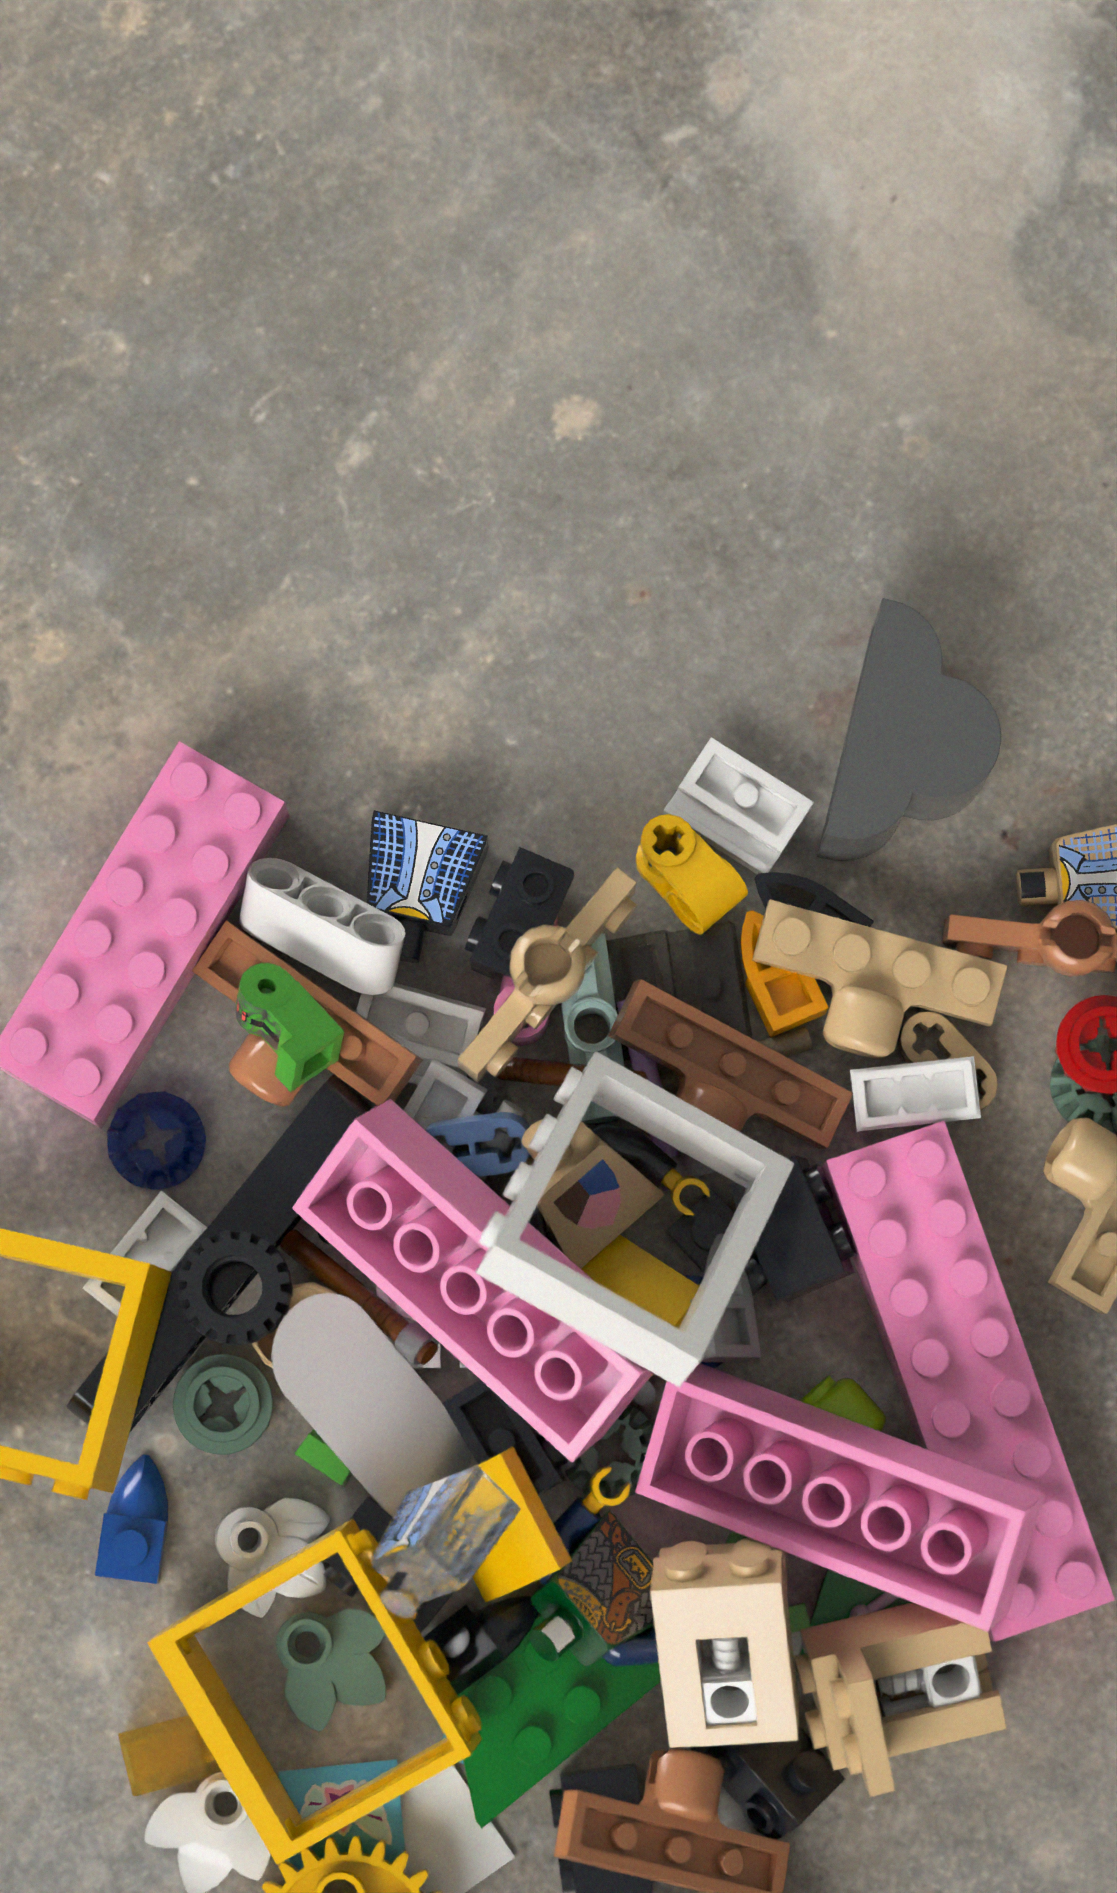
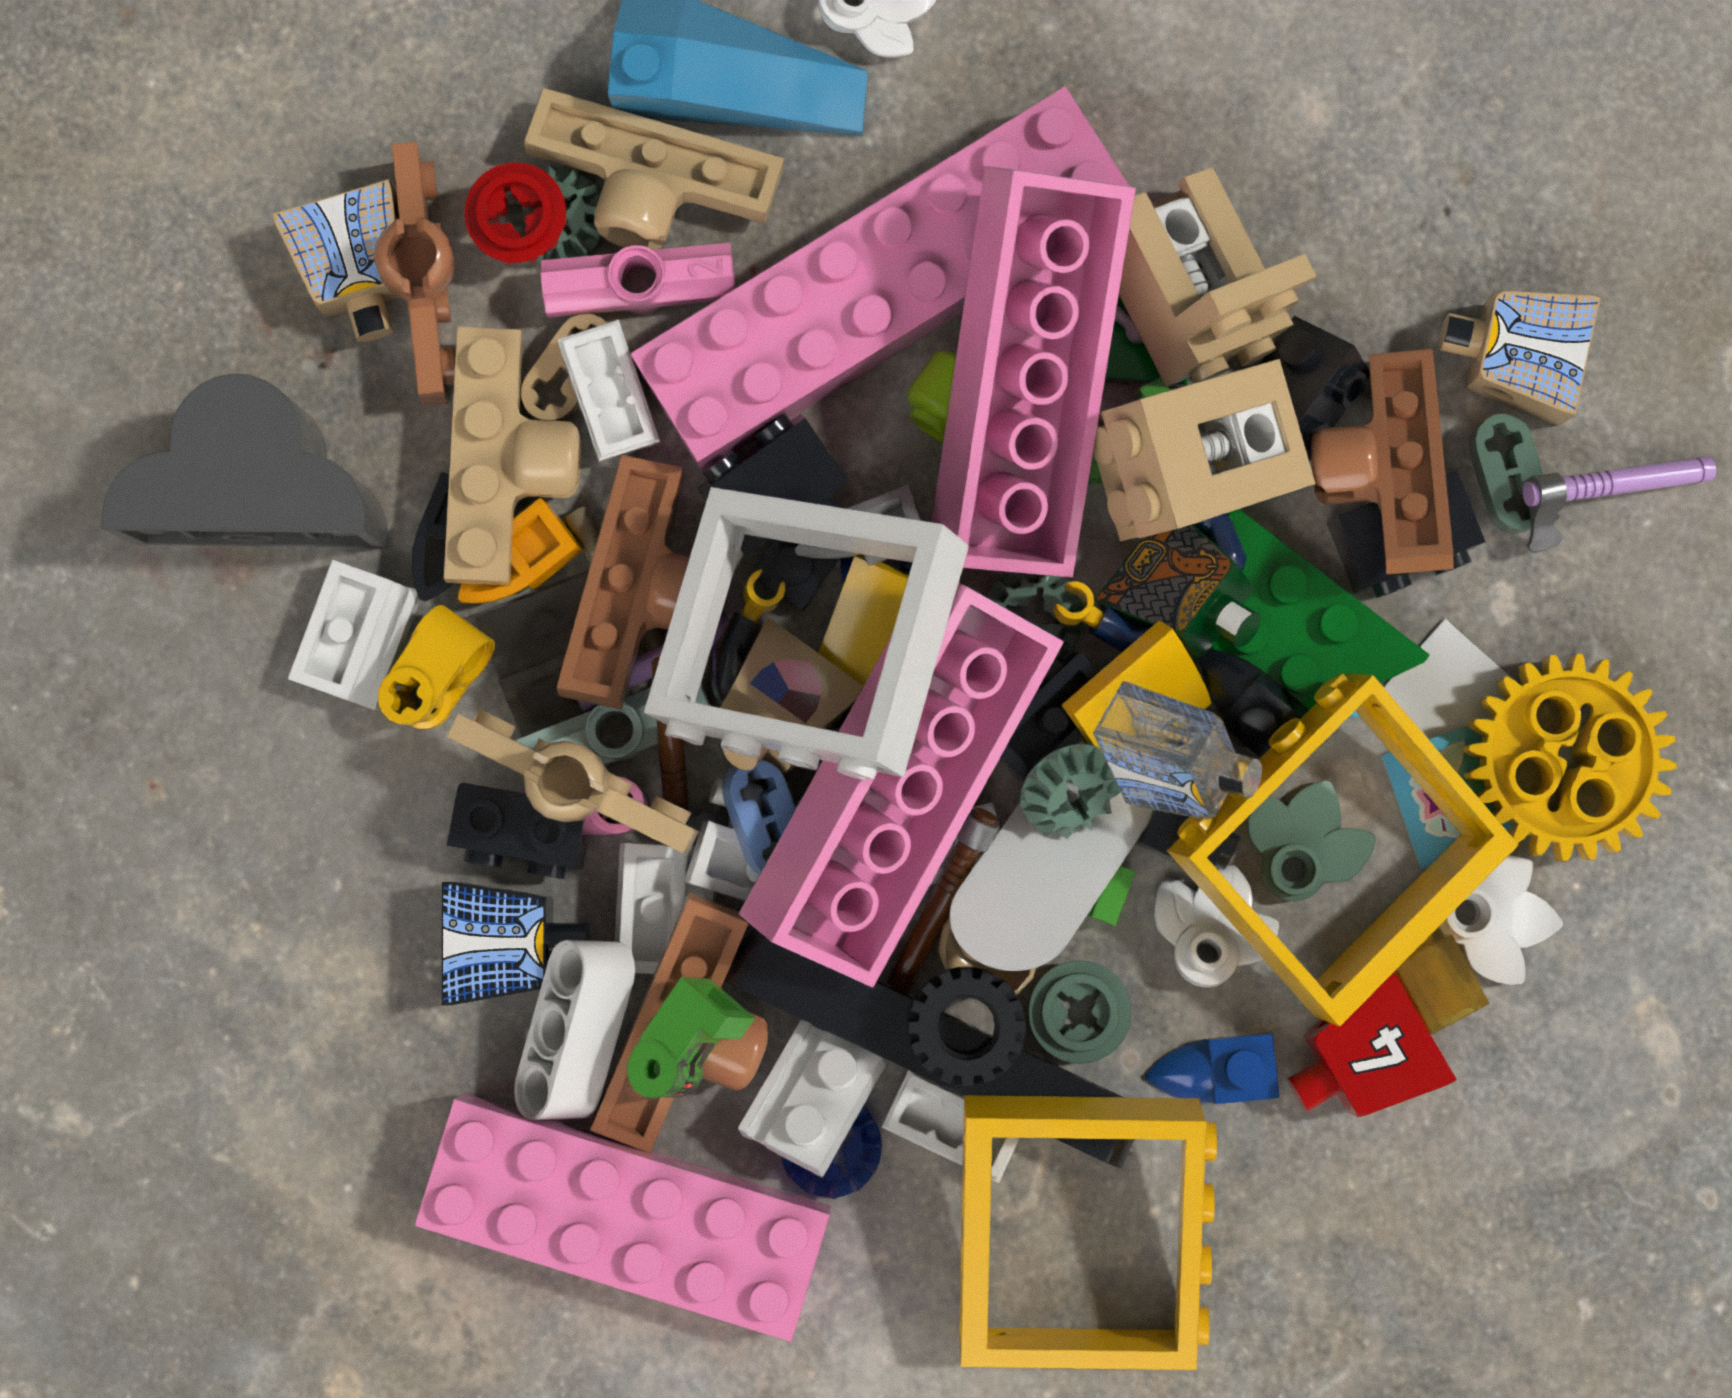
camera: 100 degrees left, 5 degrees up
(111, 1673) = (1373, 1057): none -> red torso
(204, 1131) = (812, 1097): none -> white plate
(432, 1412) = (1045, 788): none -> sand green gear
(1023, 1108) = (596, 281): none -> bright pink piece

